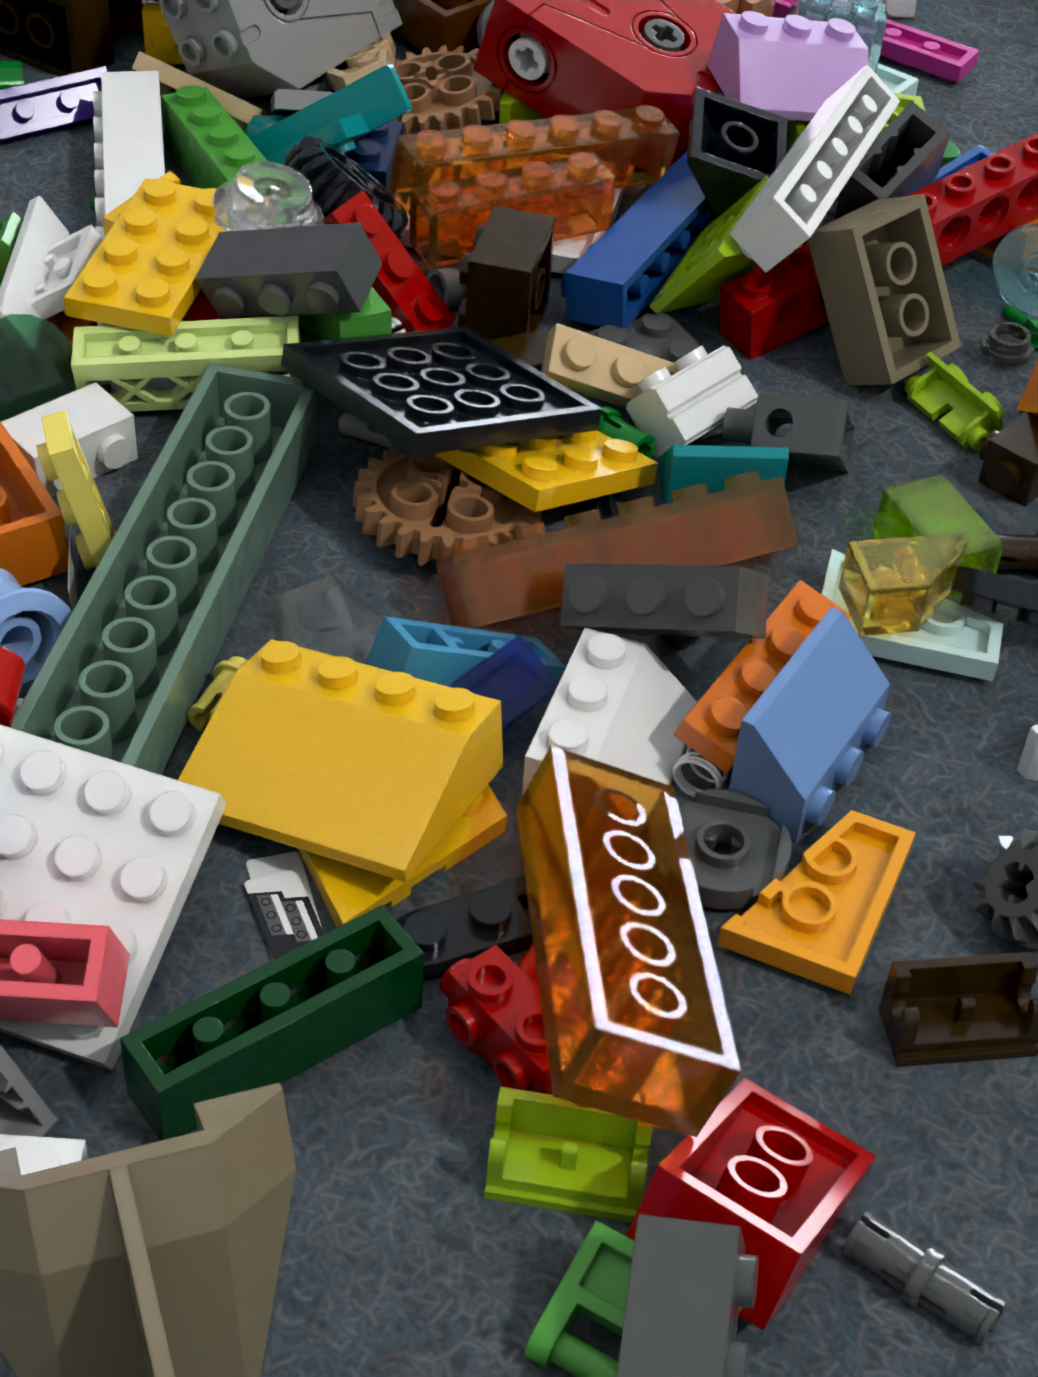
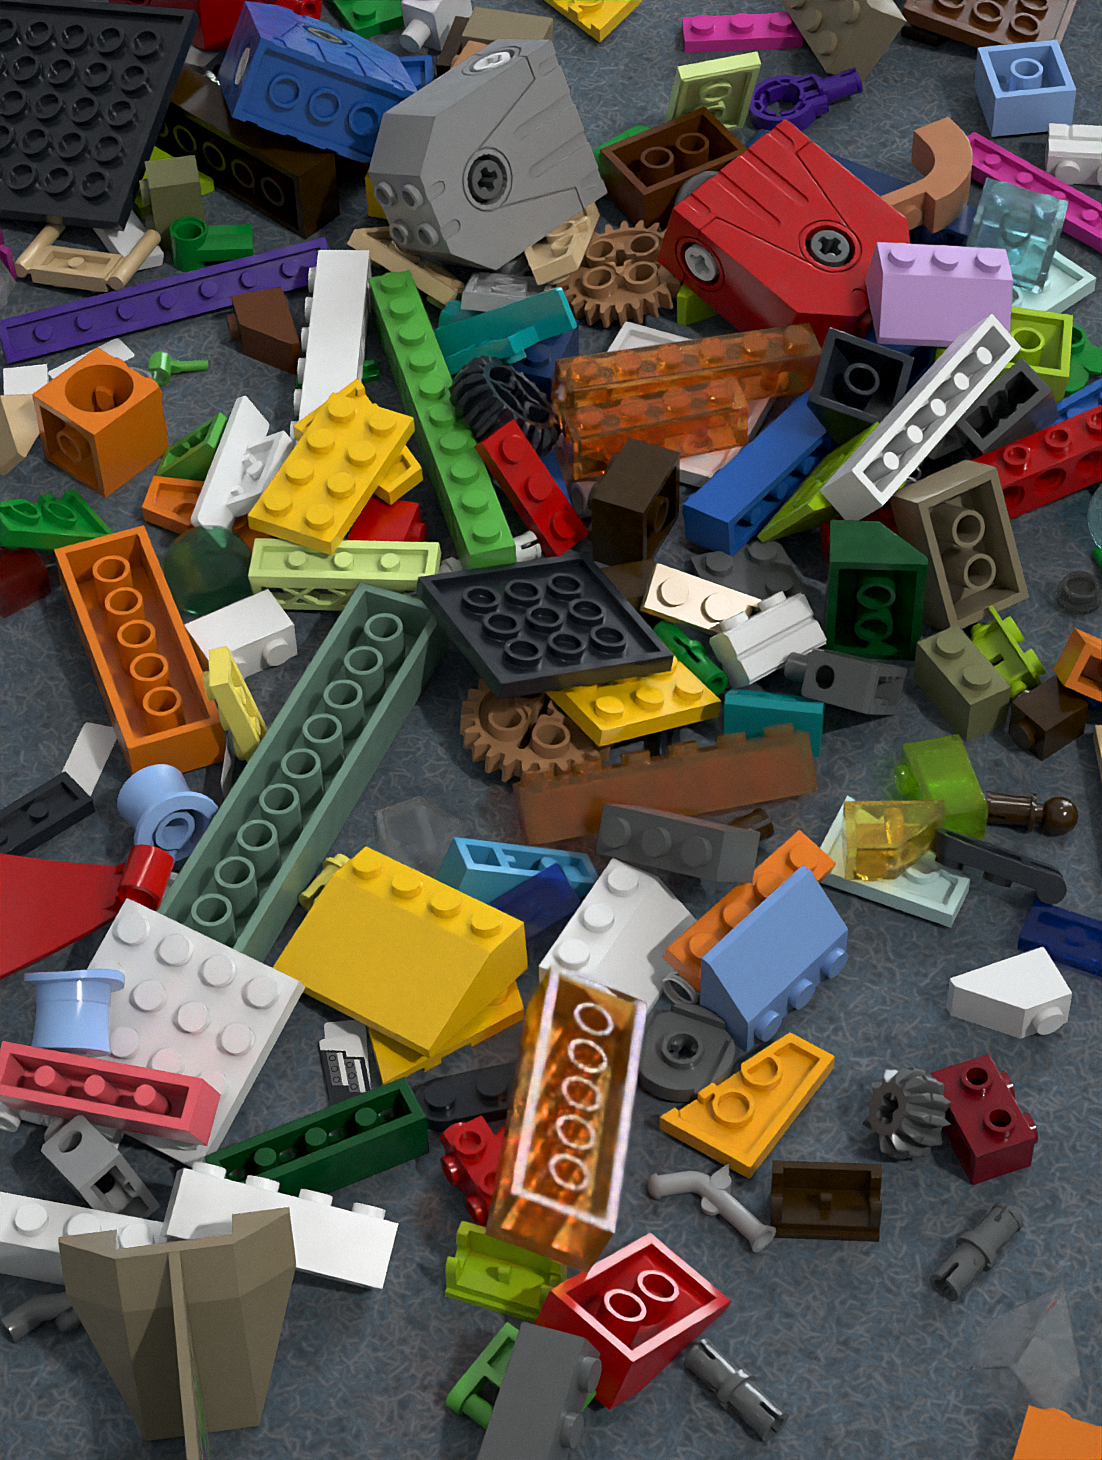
camera: 15 degrees right, 5 degrees up
(50, 153) = (265, 328): none -> reddish brown slope
(265, 198) = (428, 435): clear piece -> none
(289, 271) = (434, 505): dark grey brick -> none
(341, 1138) = (327, 1239): none -> white brick
(809, 326) = (873, 592): none -> dark green slope
(817, 1027) = (716, 1200): none -> light grey piece
(919, 428) = (961, 683): none -> olive brick

